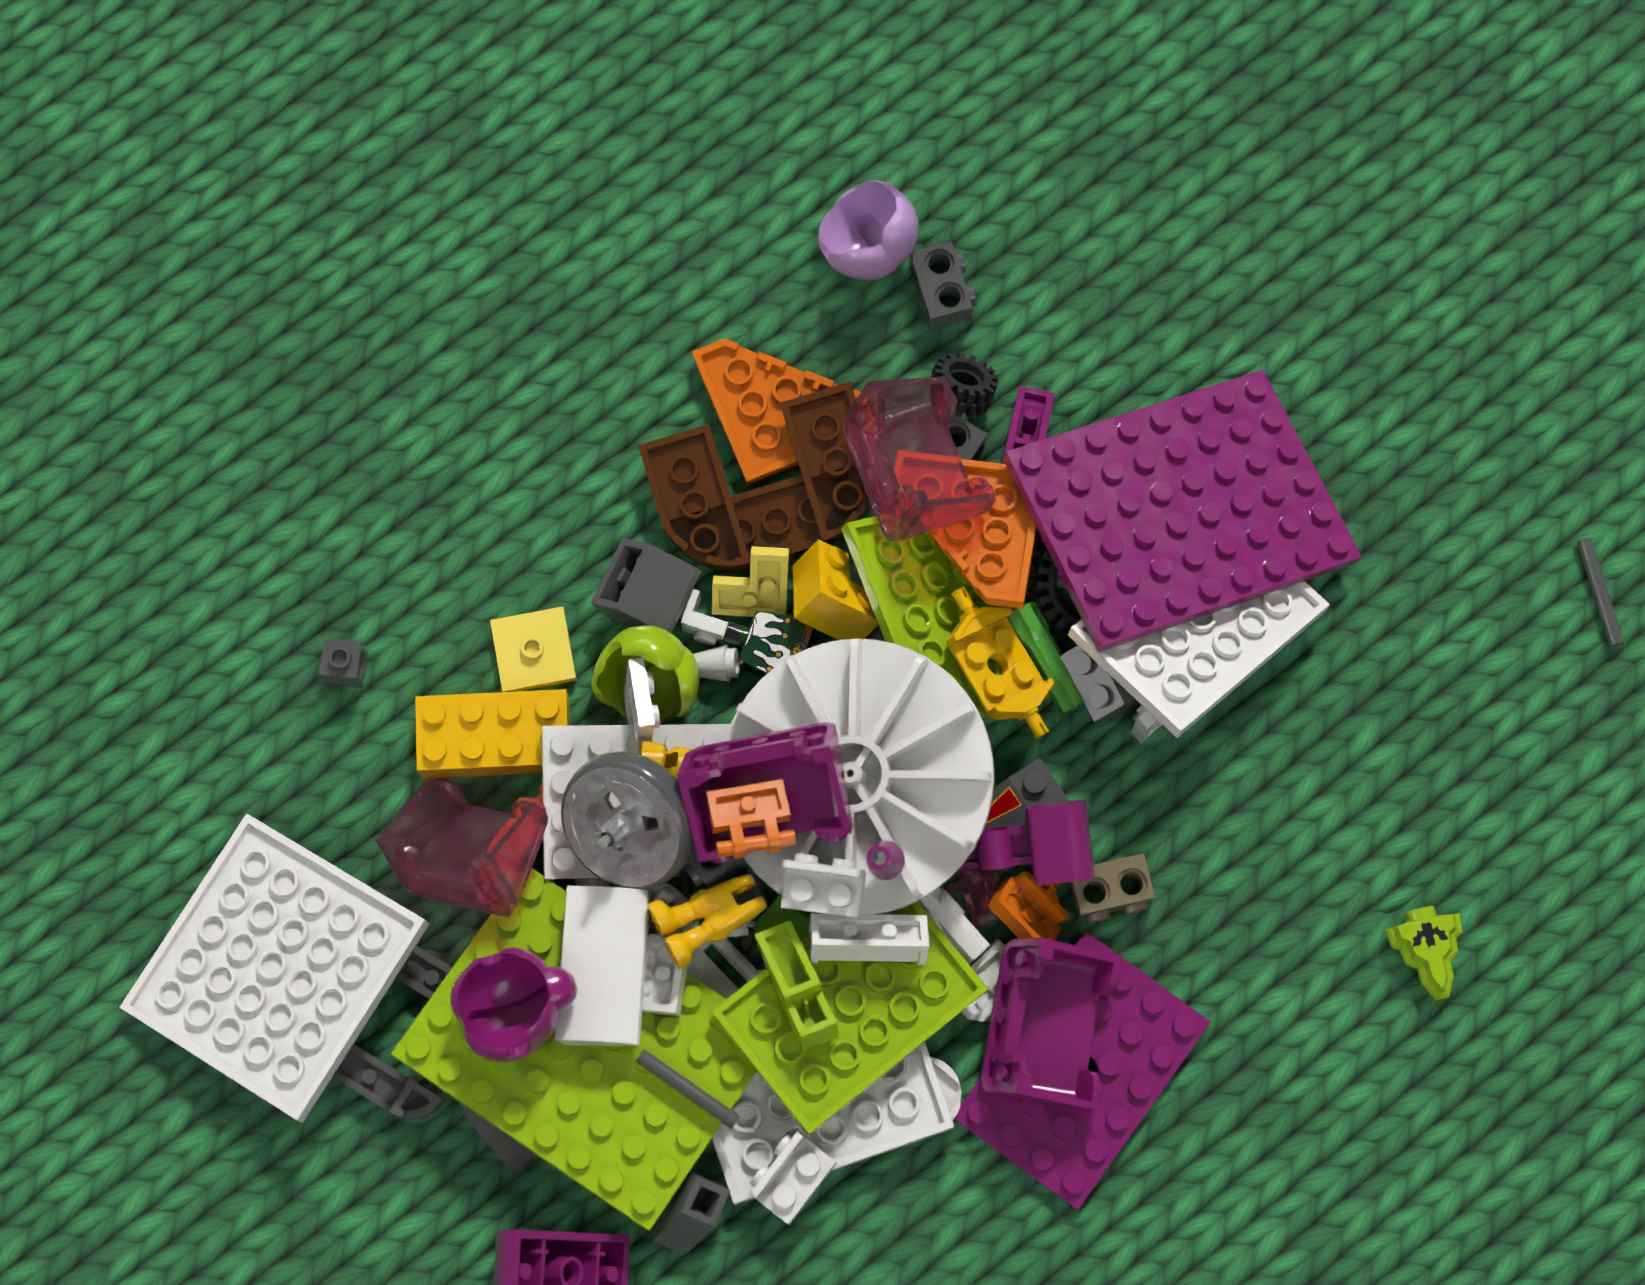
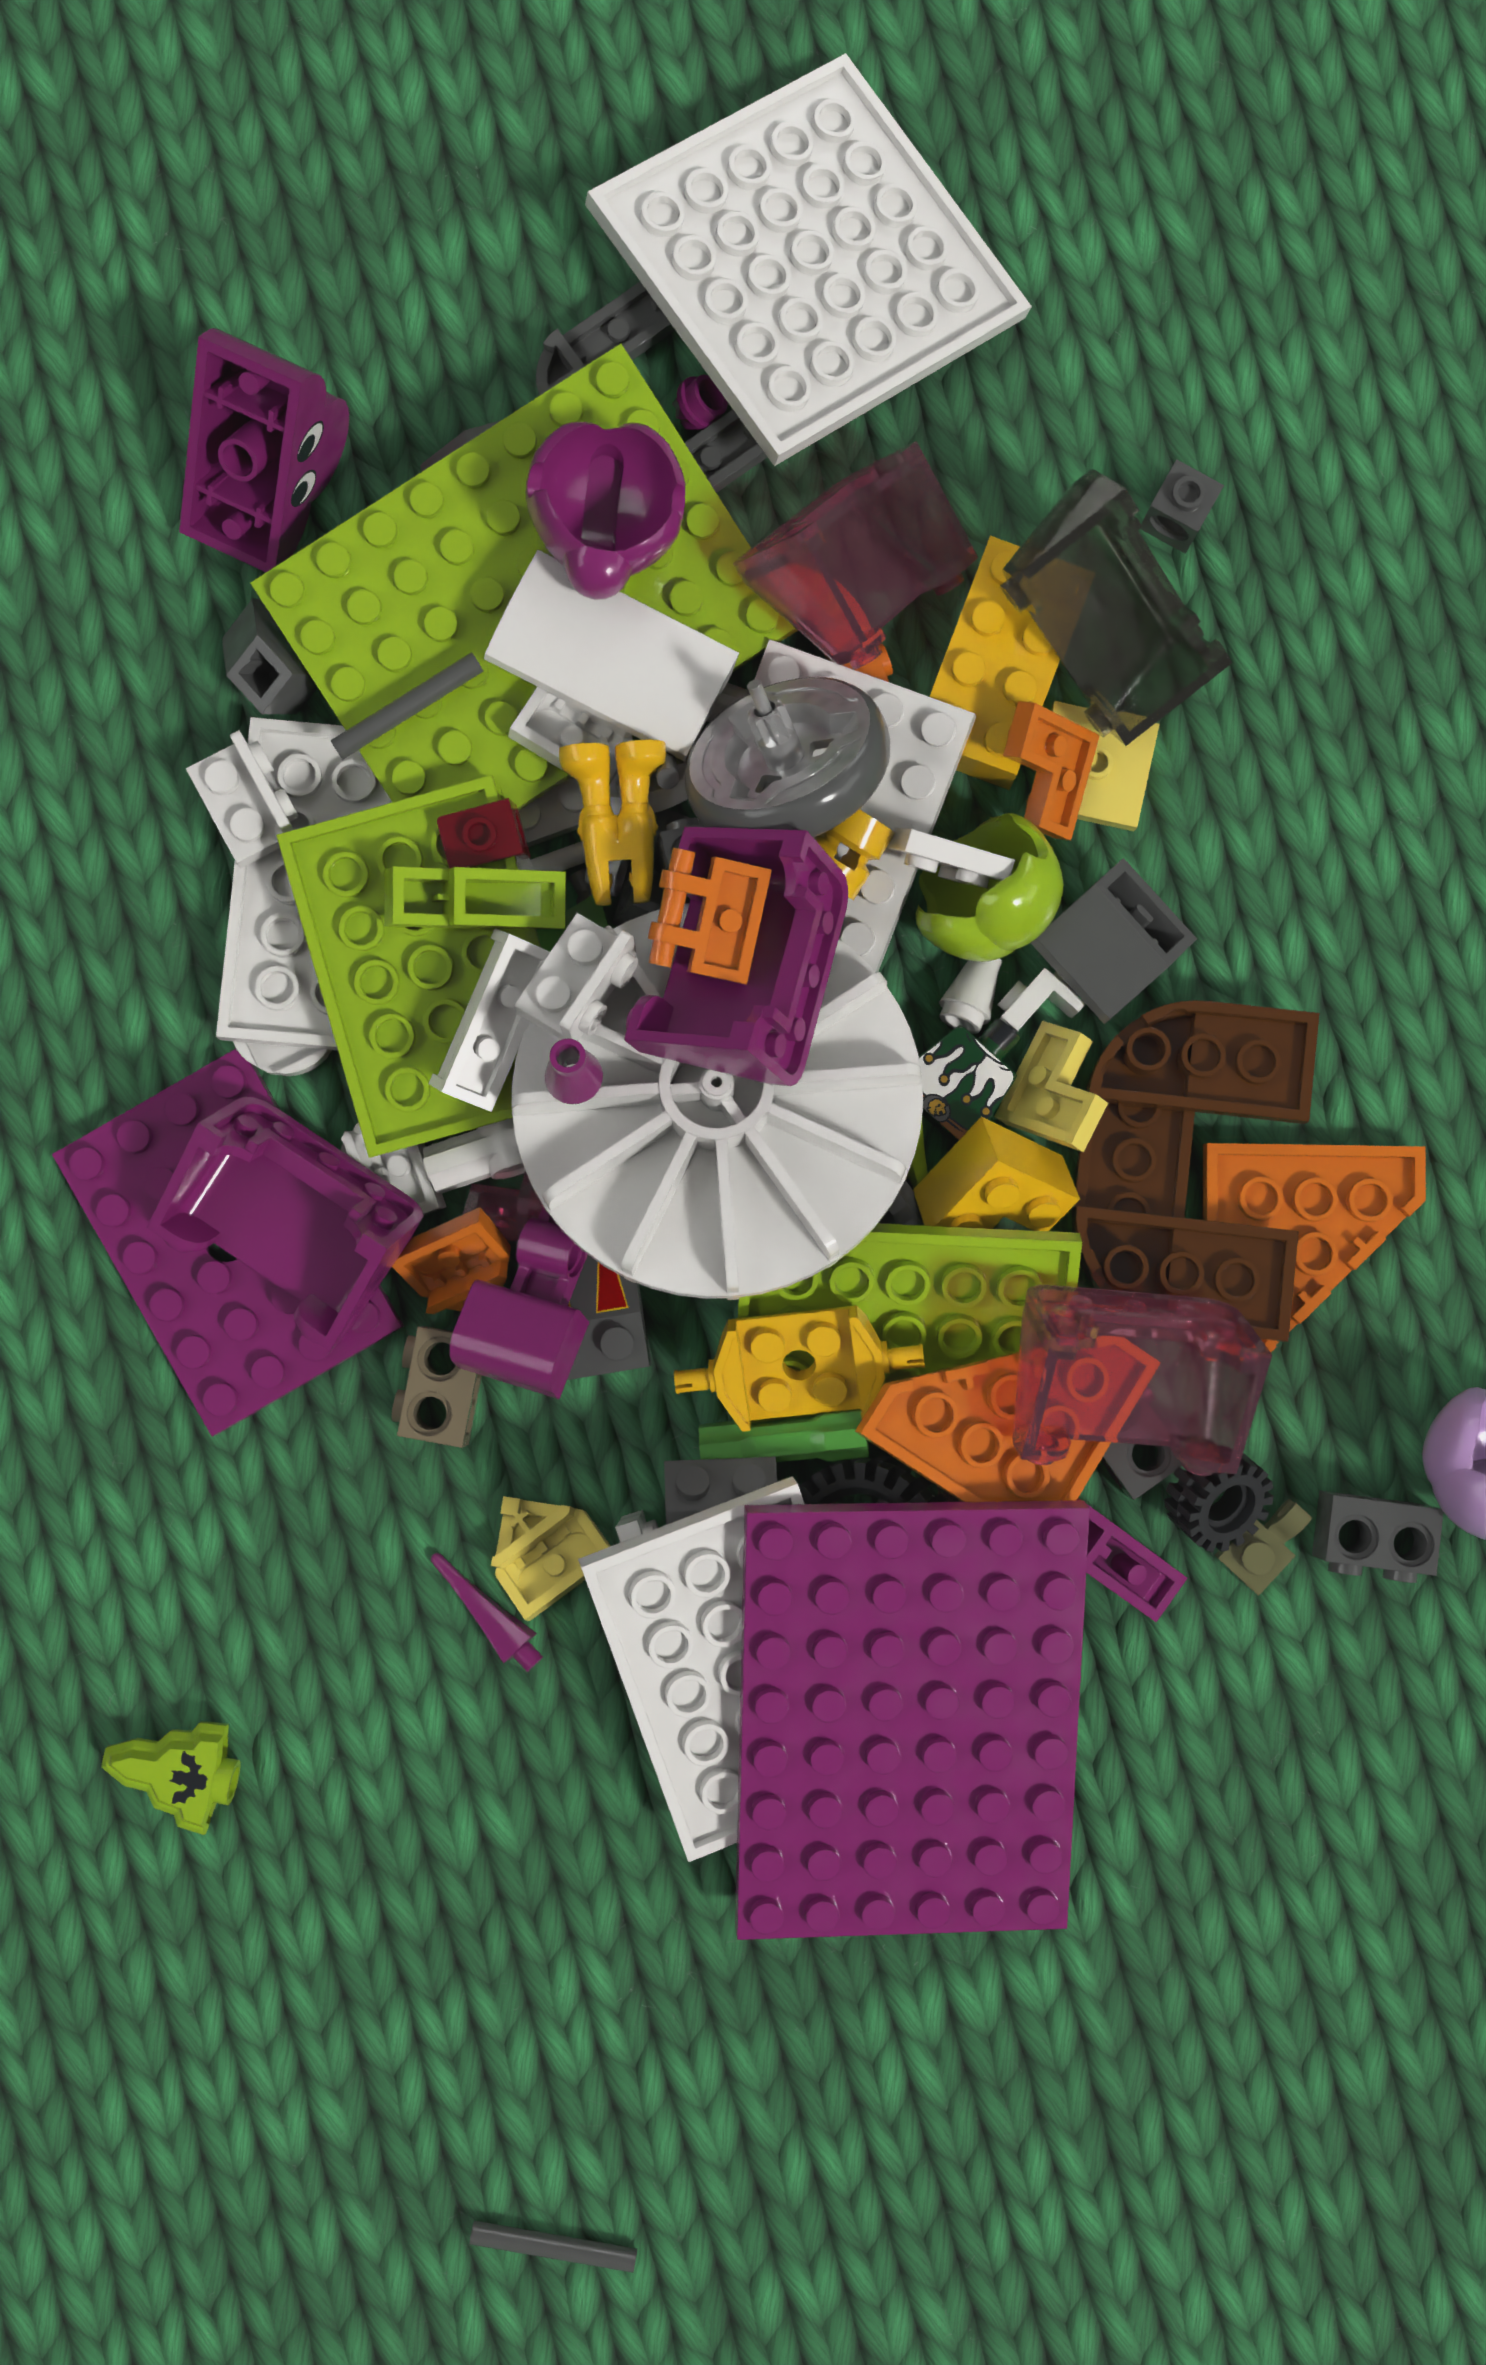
camera: 115 degrees right, 10 degrees up
(398, 1001) = (698, 403): none -> magenta plate
(440, 670) = (1110, 610): none -> clear smoke windscreen
(543, 668) = (1062, 761): none -> orange plate
(753, 1001) = (483, 834): none -> dark red bracket
(982, 345) = (1264, 1553): none -> olive plate
(1184, 779) = (541, 1552): none -> light yellow slope
(1245, 782) = (505, 1632): none -> magenta piece

